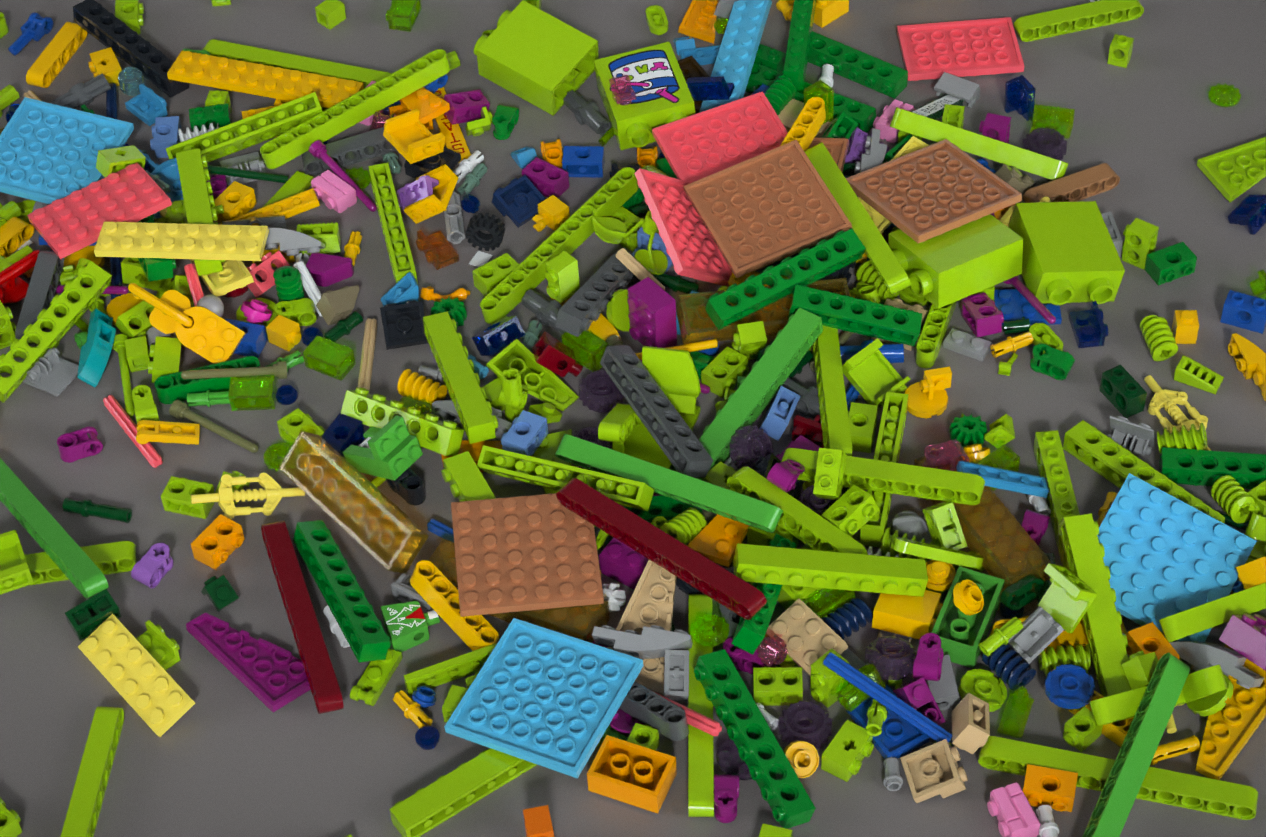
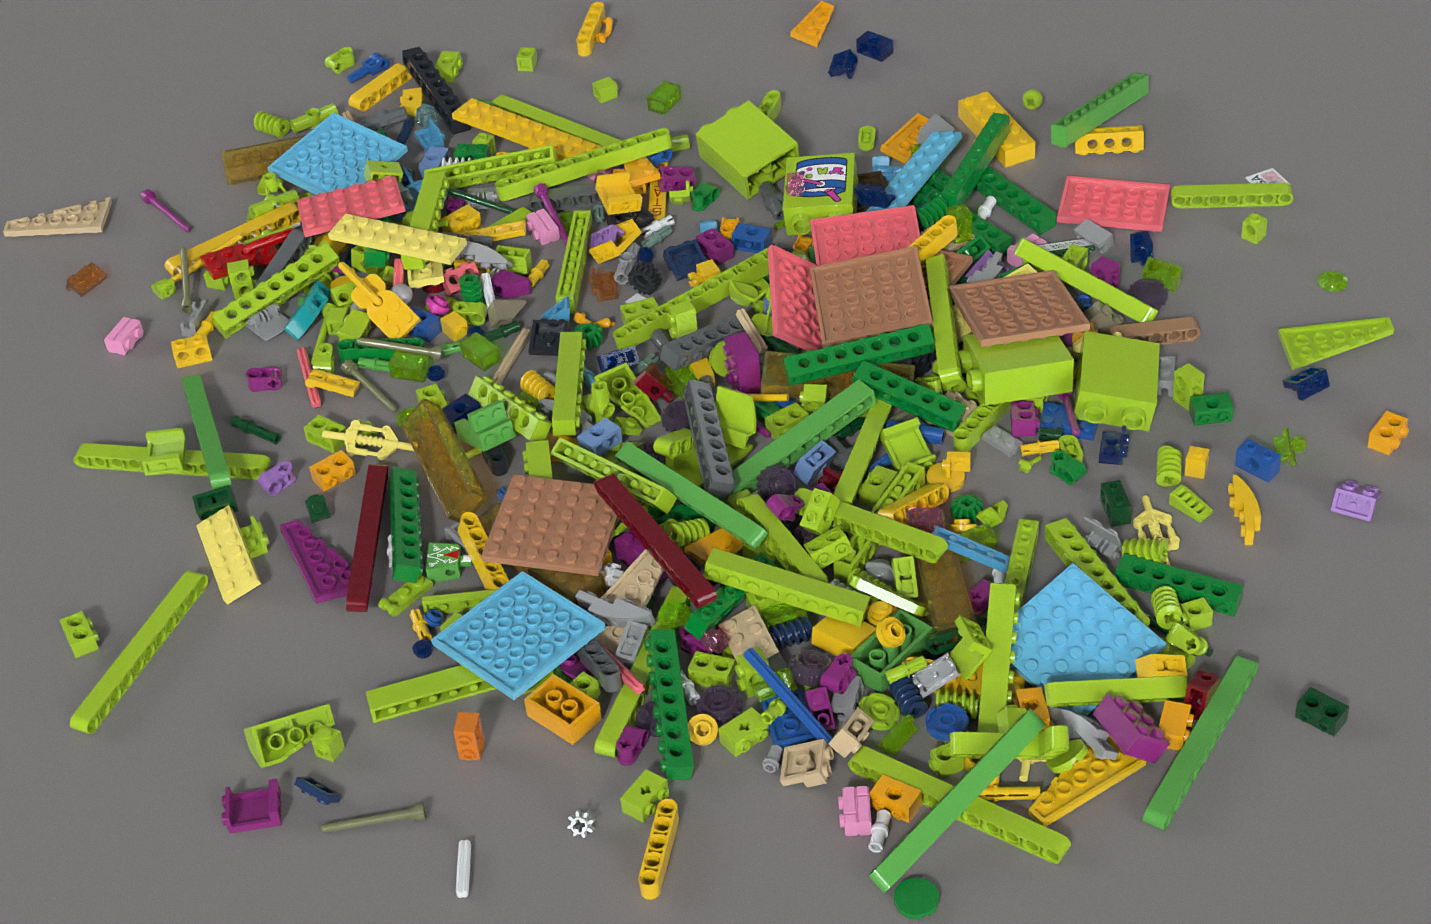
camera: 20 degrees right, 5 degrees down
(916, 437) = (925, 497): none -> yellow beam

